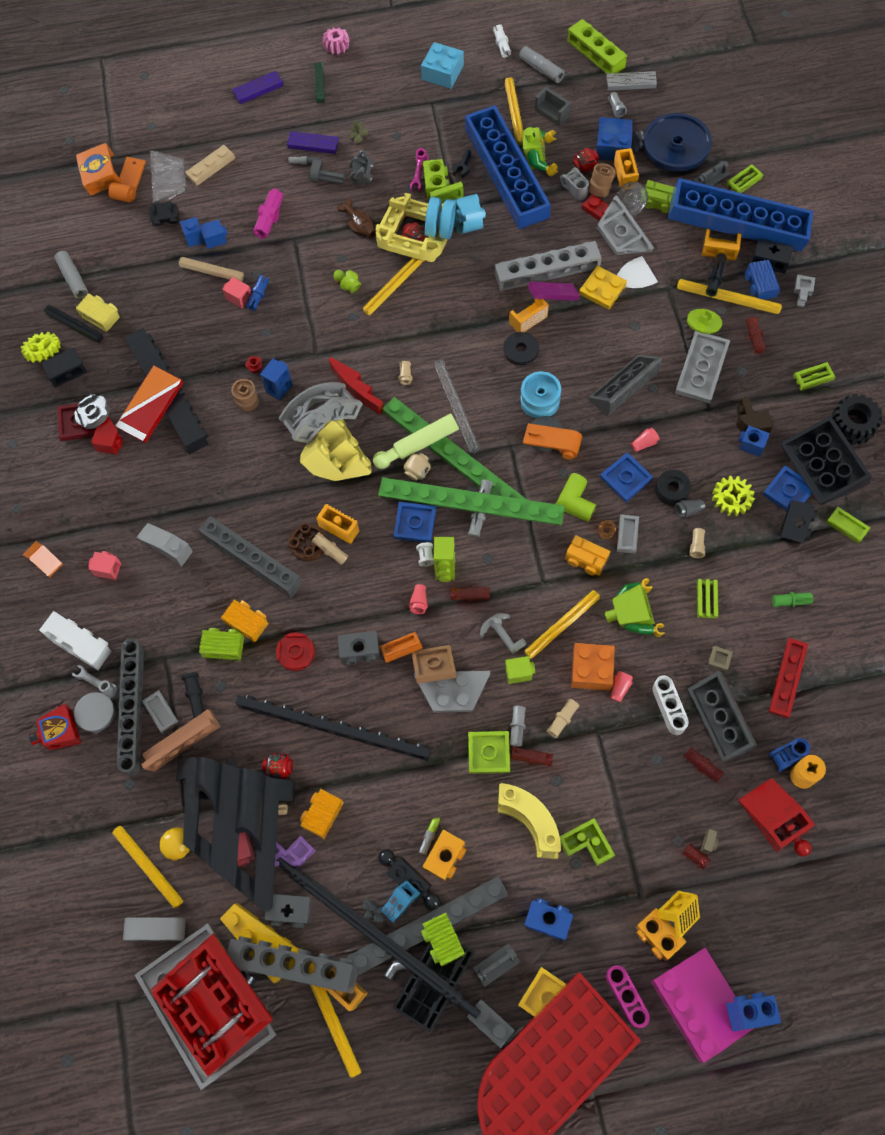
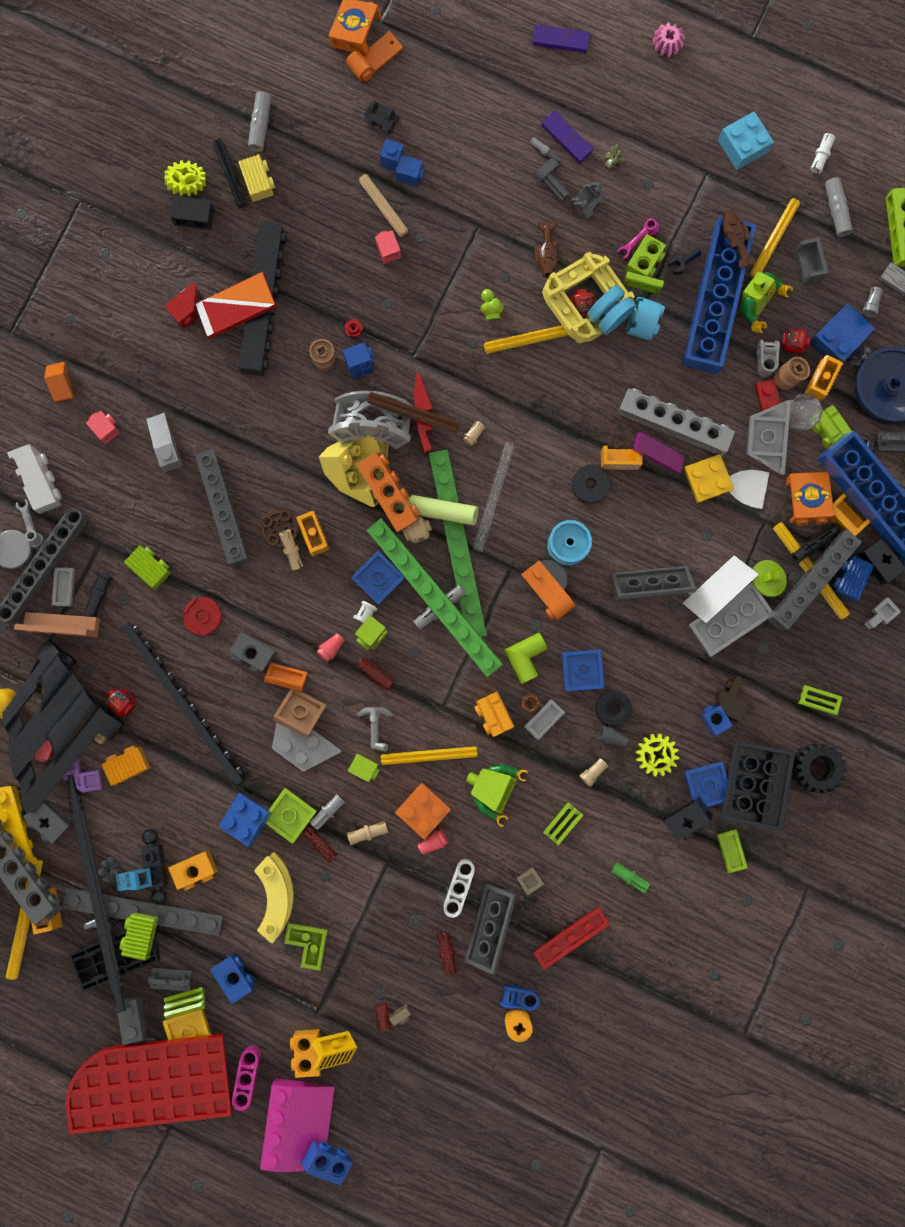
camera: 30 degrees right, 15 degrees up
(68, 426) = (169, 273): dark red plate -> none
(92, 411) = (184, 276): tile -> none
(167, 176) = (412, 77): clear wing -> none
(210, 165) = (458, 93): tan plate -> none
(243, 619) = (180, 560): light orange brick -> none
(257, 293) = (405, 259): blue pin -> none
(268, 213) = (472, 185): dark pink piece -> none
(319, 82) = (619, 76): clear green beam -> none
(346, 442) = (368, 469): none -> orange brick
(349, 383) = (413, 412): none -> reddish brown axle
(429, 836) = (195, 844): light grey piece -> none
(455, 782) = (244, 819): none -> blue plate
(489, 117) = (737, 234): none -> reddish brown animal
(522, 972) = (184, 999): none -> lime tile
(646, 439) = (625, 649): coral cone -> none
(676, 351) = (720, 589): none -> white sticker
(686, 247) = (810, 498): none -> orange panel
(738, 297) = (814, 580): none -> dark grey brick
(755, 335) = (802, 625): clear red pin -> none
(776, 814) = (468, 1033): red slope -> none

